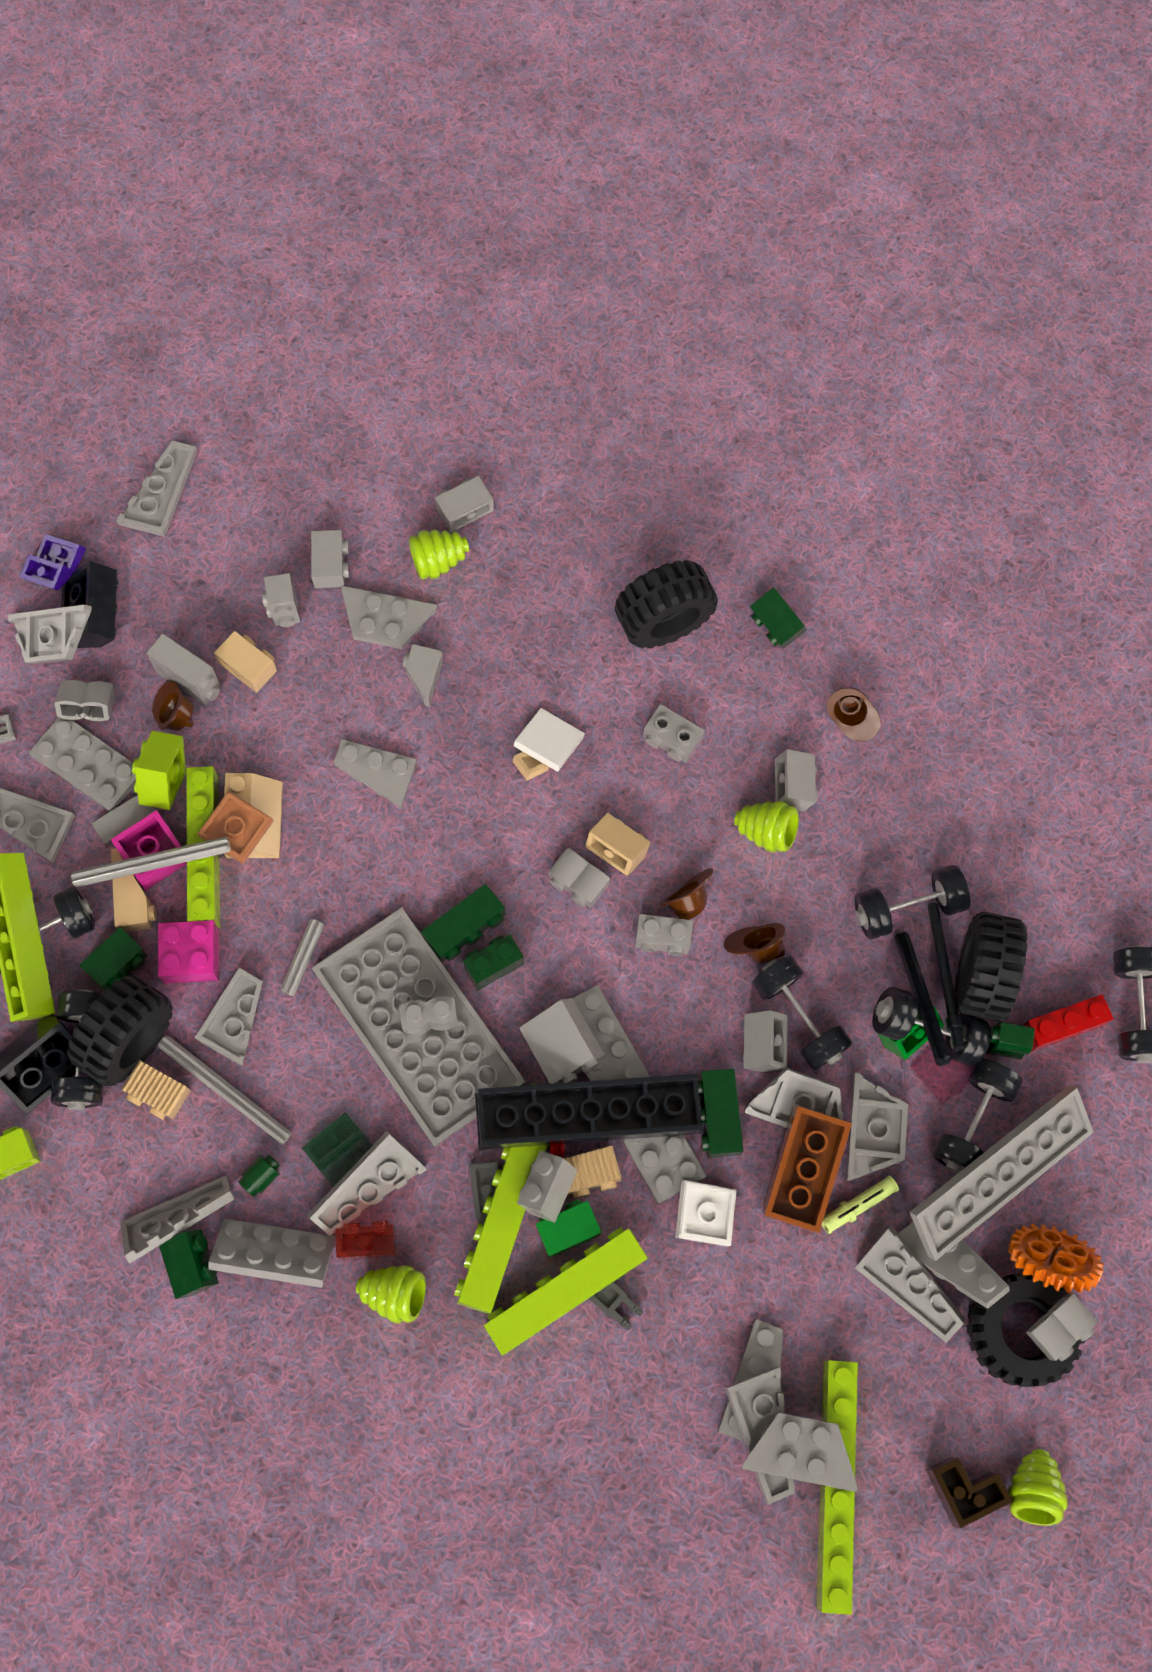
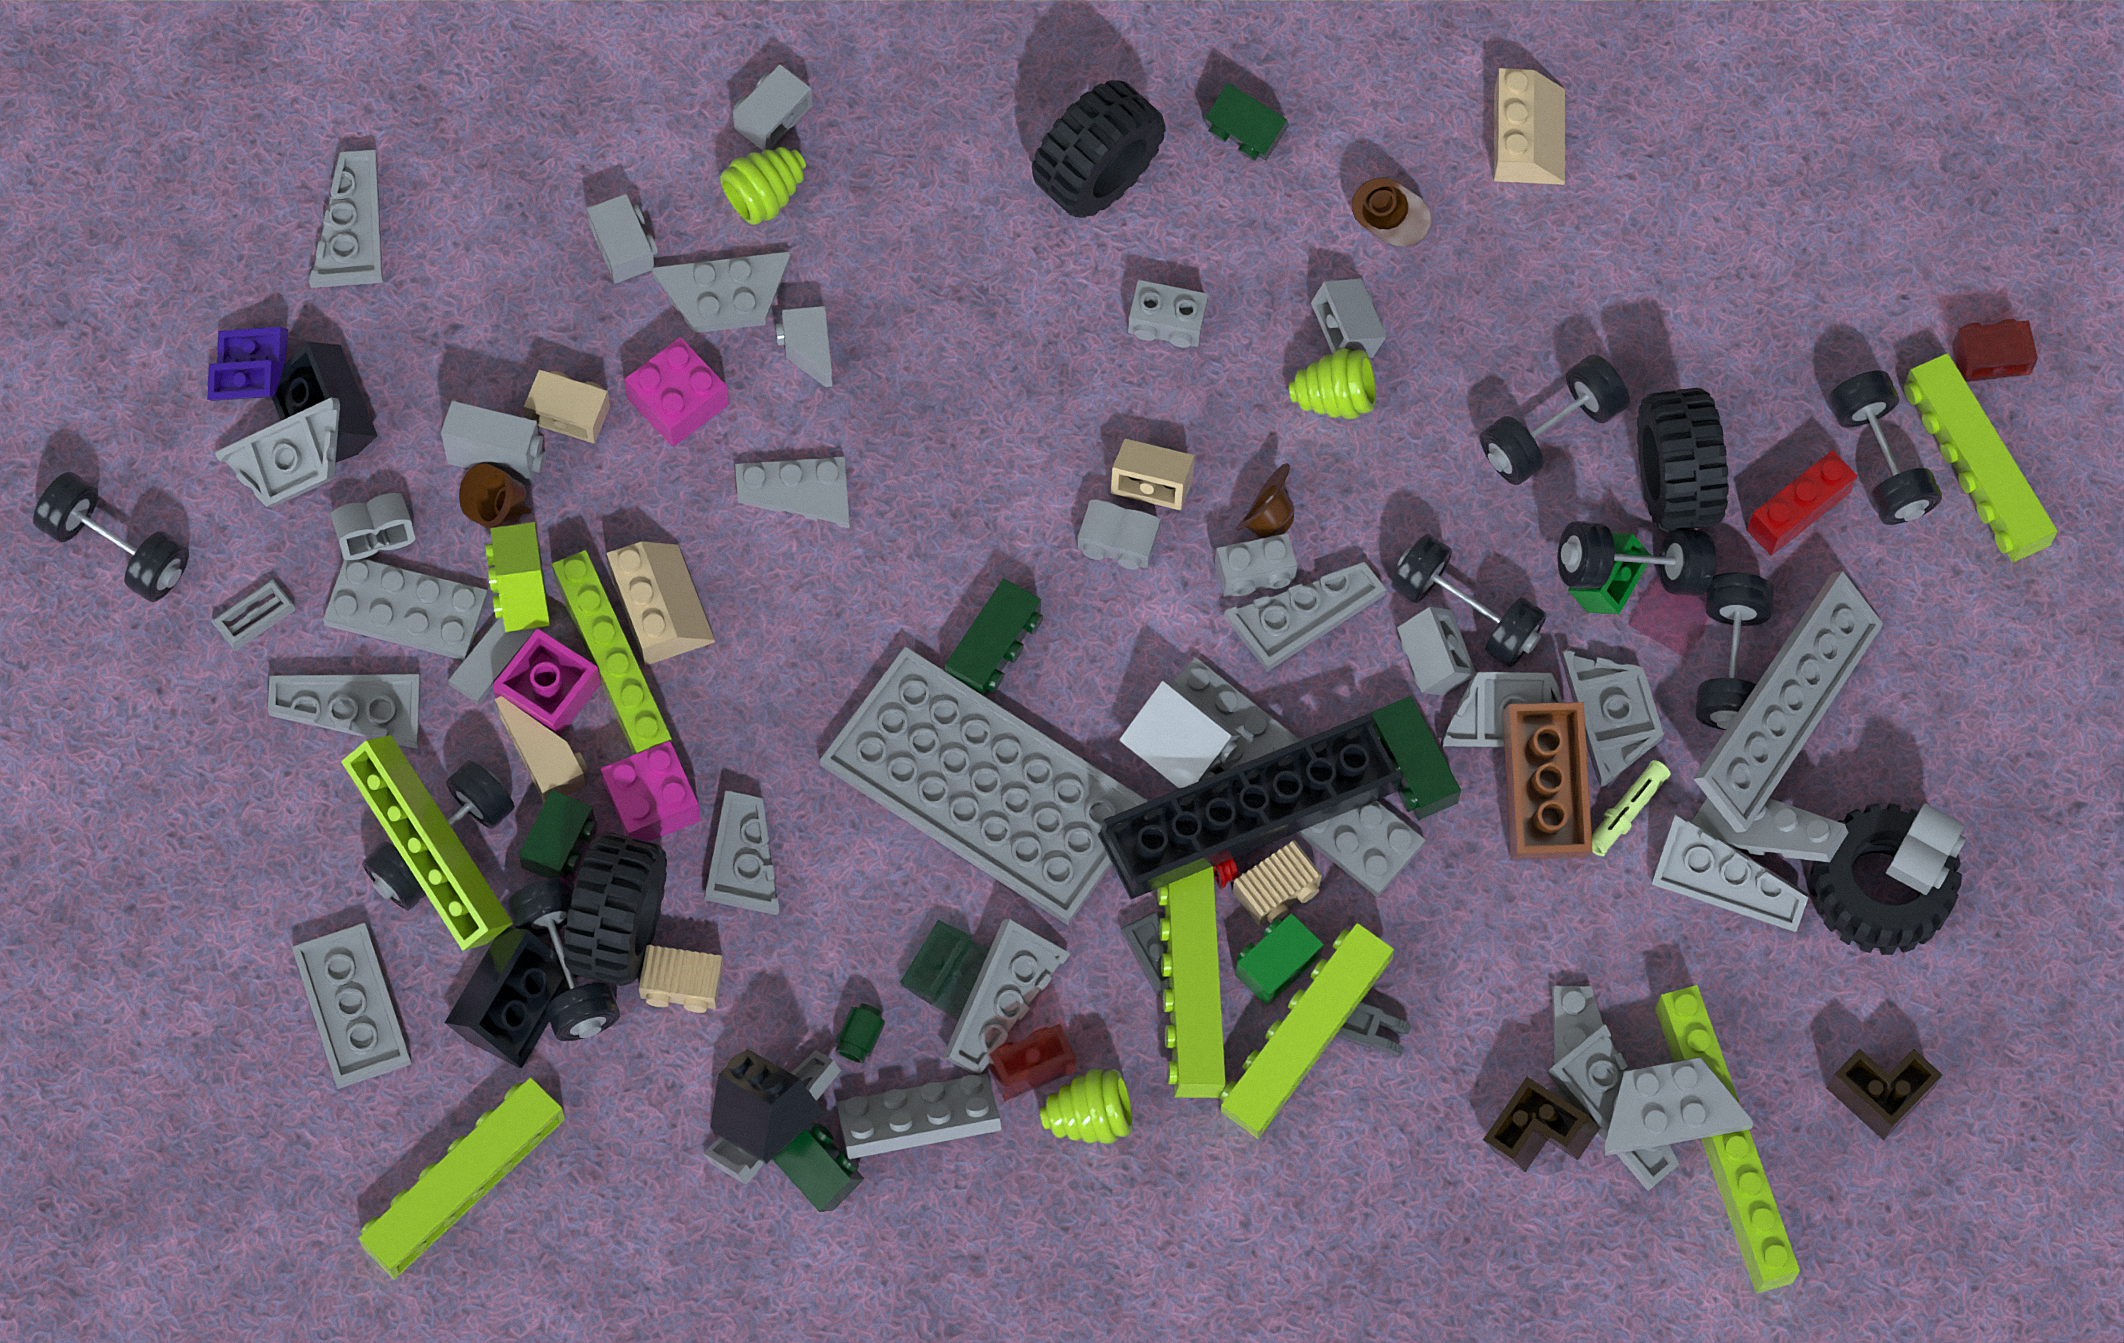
camera: 20 degrees left, 5 degrees down
(151, 861) = (561, 692): light grey axle -> none
(164, 1209) = (761, 1106): none -> black slope
(224, 1089) = (768, 948): light grey axle -> none
(239, 823) = (652, 614): nougat tile -> none
(281, 600) = (584, 311): light grey brick -> none
(302, 957) = (799, 753): light grey axle -> none
(322, 676) = (676, 391): none -> dark pink brick
(421, 1016) = (992, 763): light grey brick -> none
(493, 962) = (1051, 673): dark green brick -> none
(529, 766) = (997, 411): tan plate -> none
(547, 1186) = (1235, 910): light grey brick -> none
(549, 739) = (1009, 374): white tile -> none
(678, 981) = (1290, 621): none -> light grey wing
(705, 1213) = (1442, 883): white tile -> none
(706, 1421) = (1532, 1120): none -> dark brown brick
(758, 942) = (1380, 536): reddish brown piece -> none
(925, 1005) = (1623, 539): black axle -> none
(953, 1021) = (1661, 542): black bar -> none
(972, 687) = (1528, 128): none -> tan slope
(1011, 1040) = (1740, 544): dark green brick -> none
(1038, 1490) = (1969, 1058): lime piece -> none
(1068, 1259) = (1890, 779): orange gear -> none

